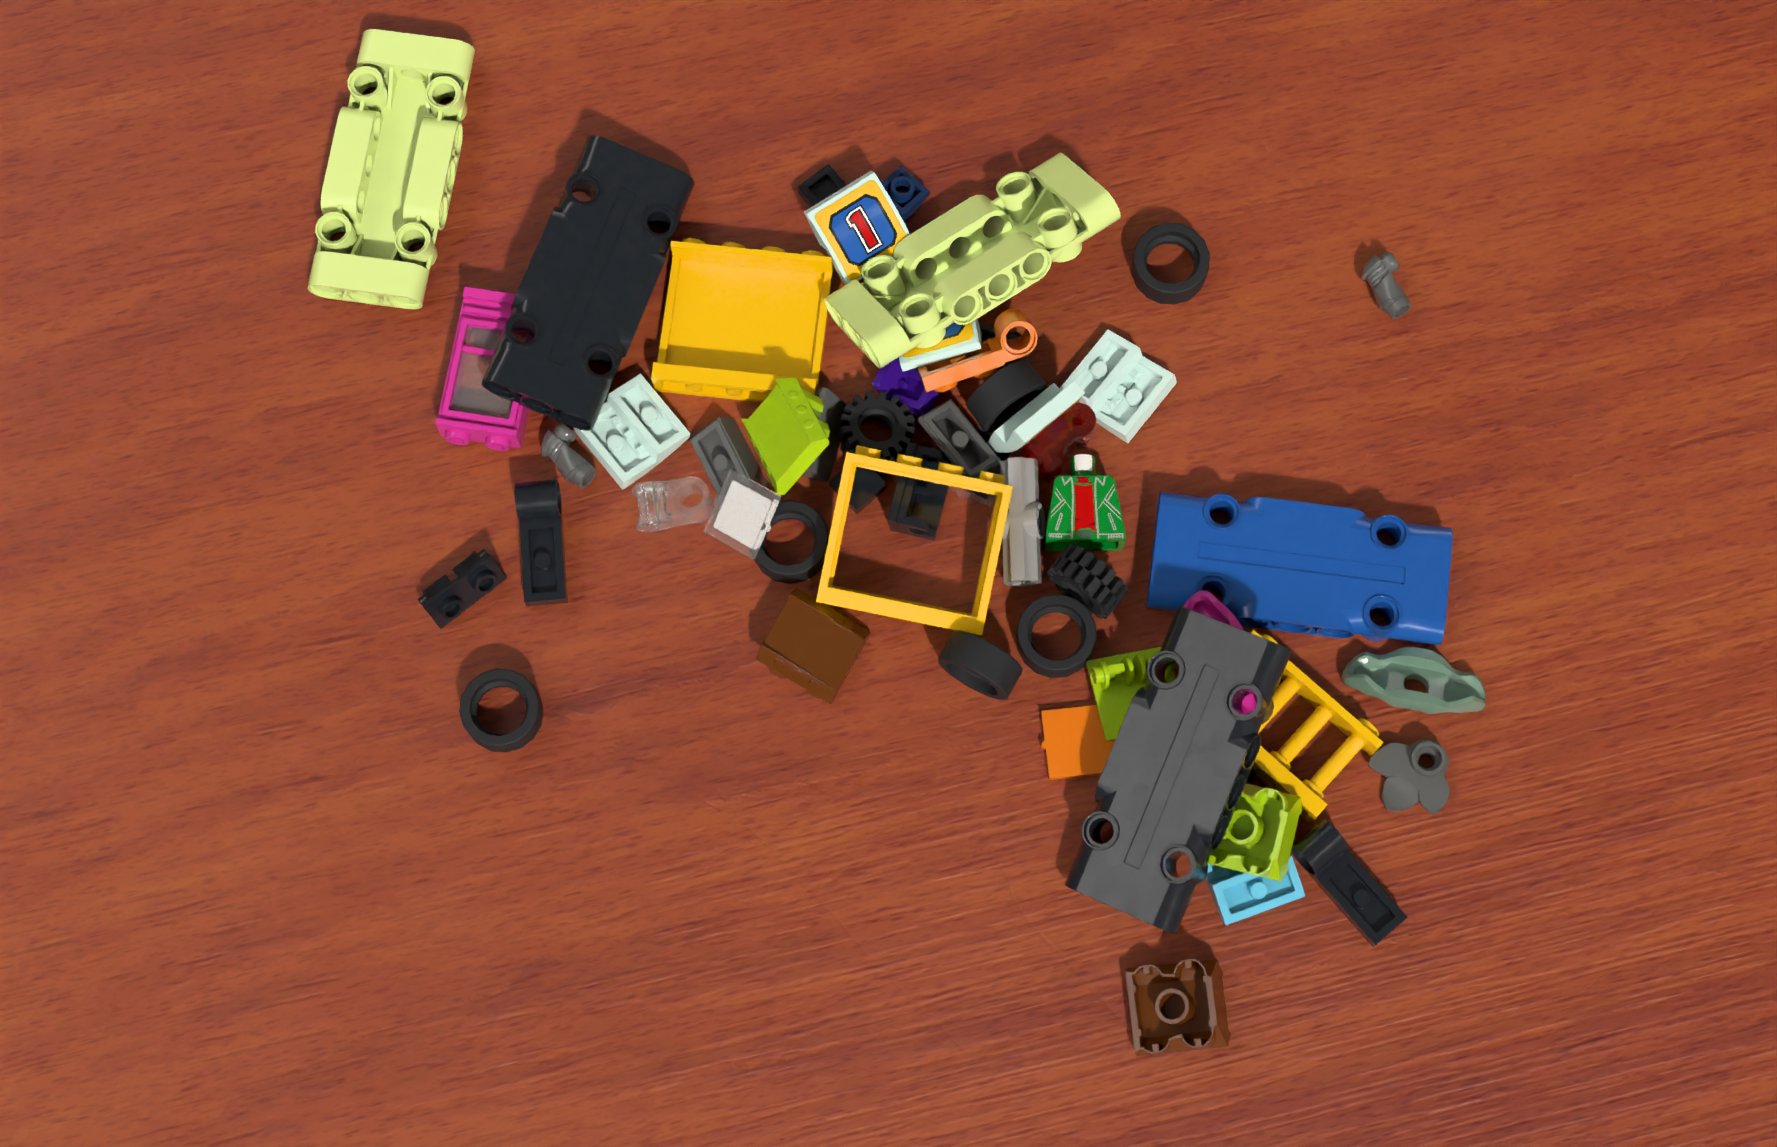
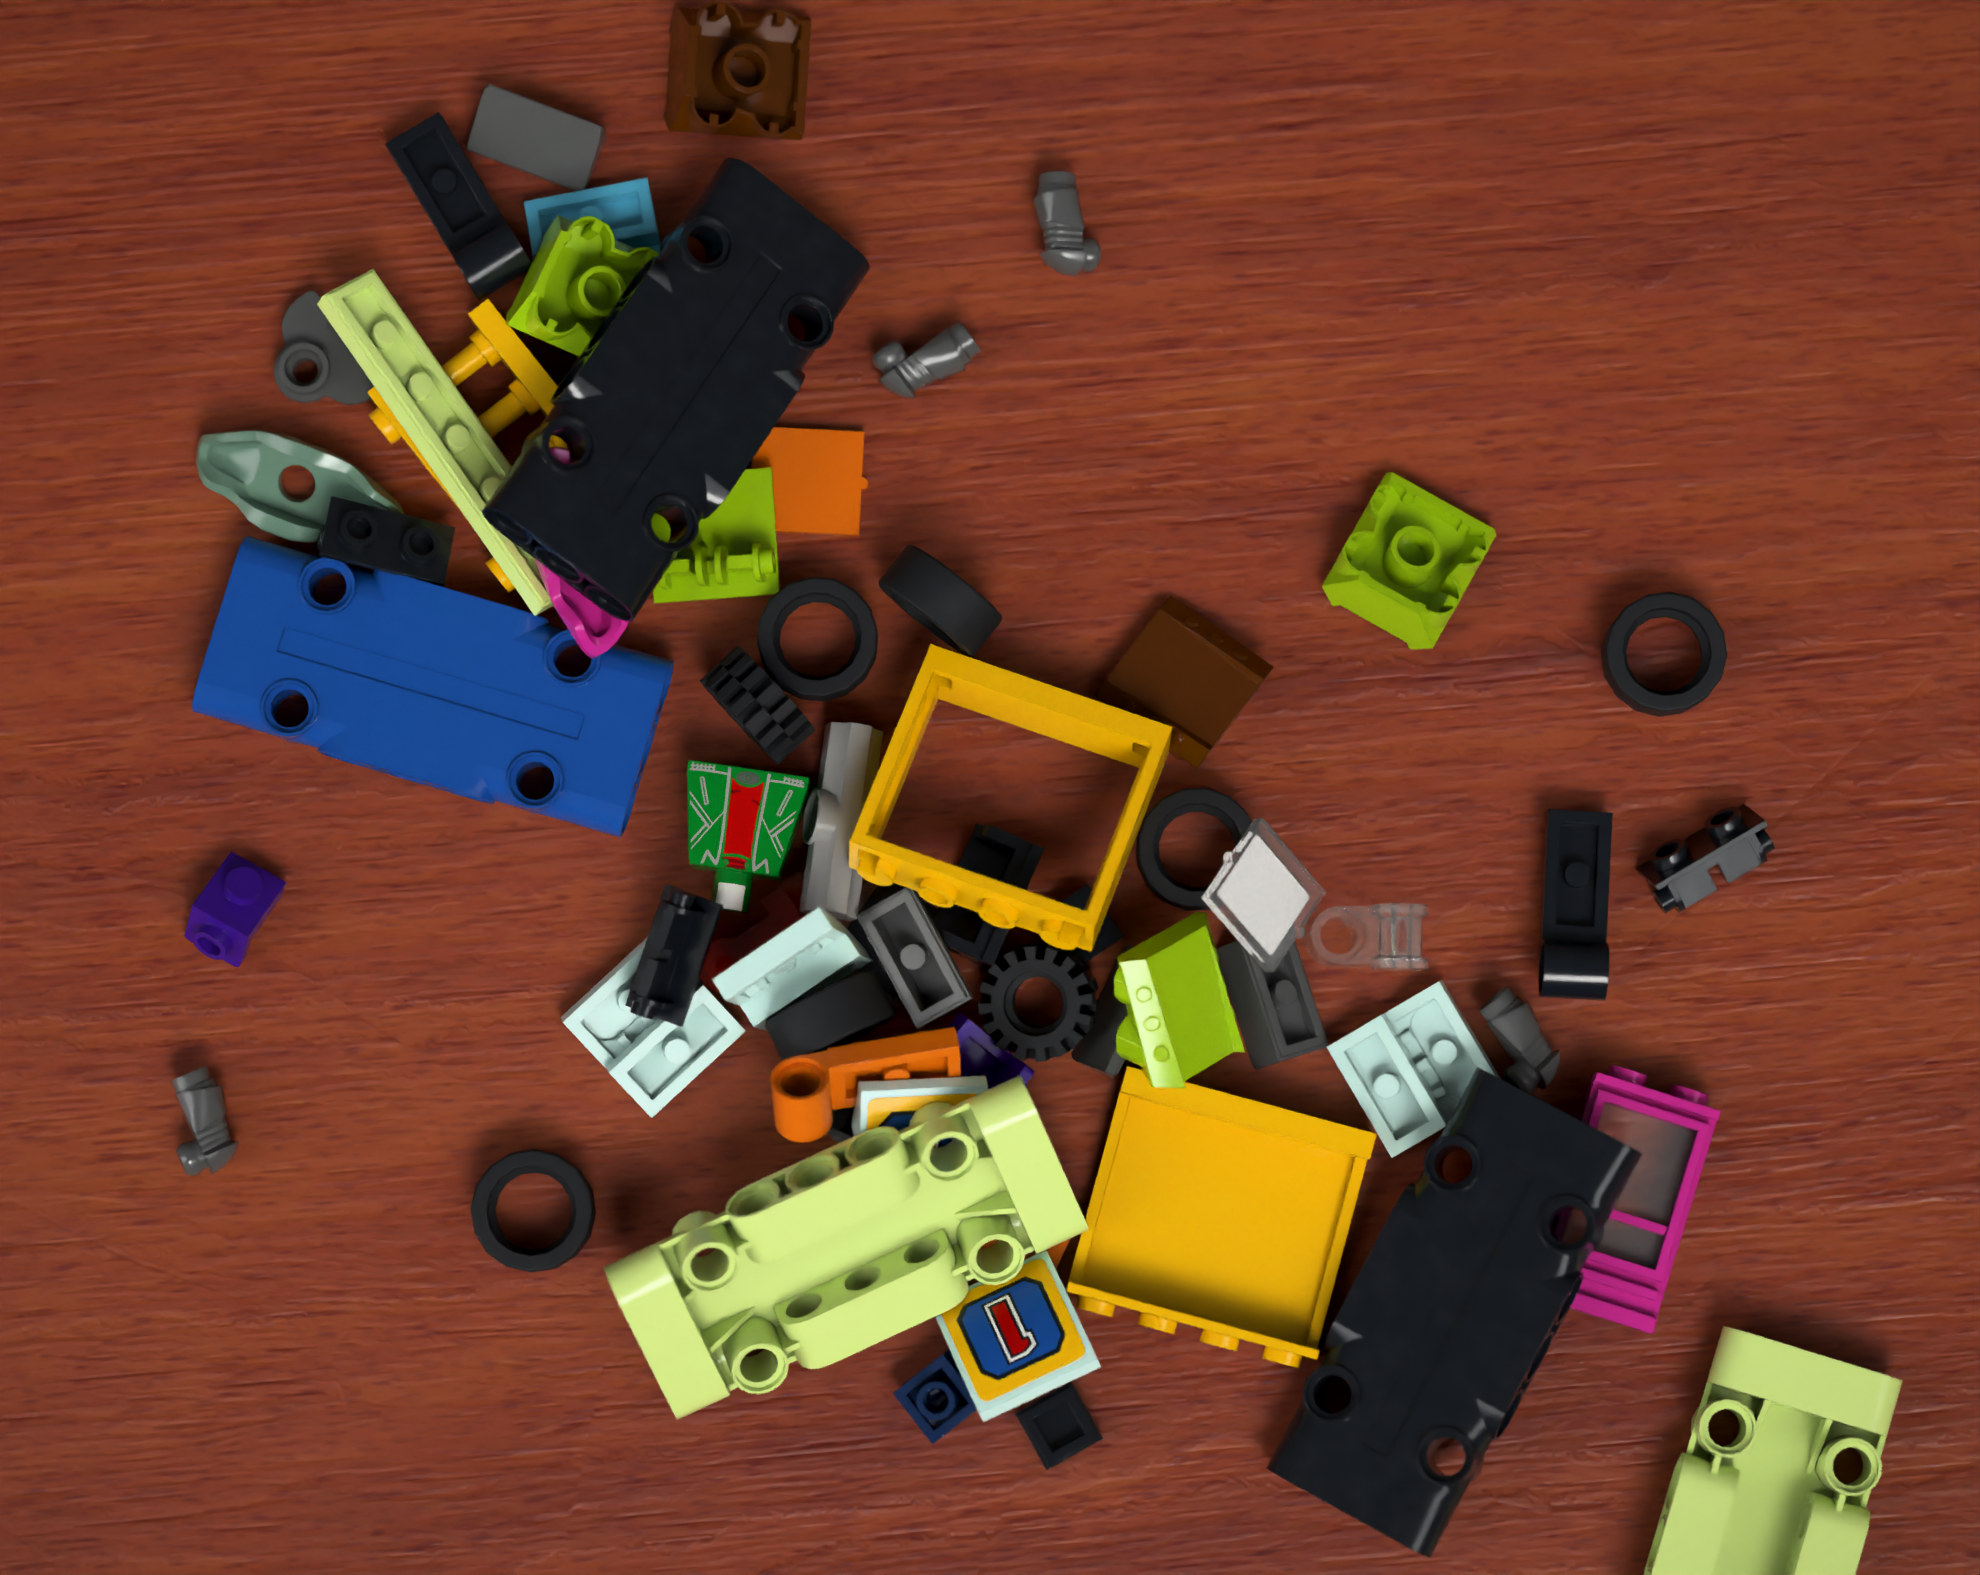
camera: 175 degrees left, 10 degrees up
(676, 747) = (1408, 562): none -> lime slope
(939, 934) = (1062, 222): none -> dark grey arm
(1013, 830) = (935, 360): none -> dark grey arm
(1113, 418) = (673, 956): none -> black hinge
(1306, 941) = (536, 138): none -> dark grey slope
(1343, 739) = (431, 415): none -> yellowish green tile
(1349, 649) = (386, 541): none -> black hinge
(1396, 414) = (232, 909): none -> dark purple bracket

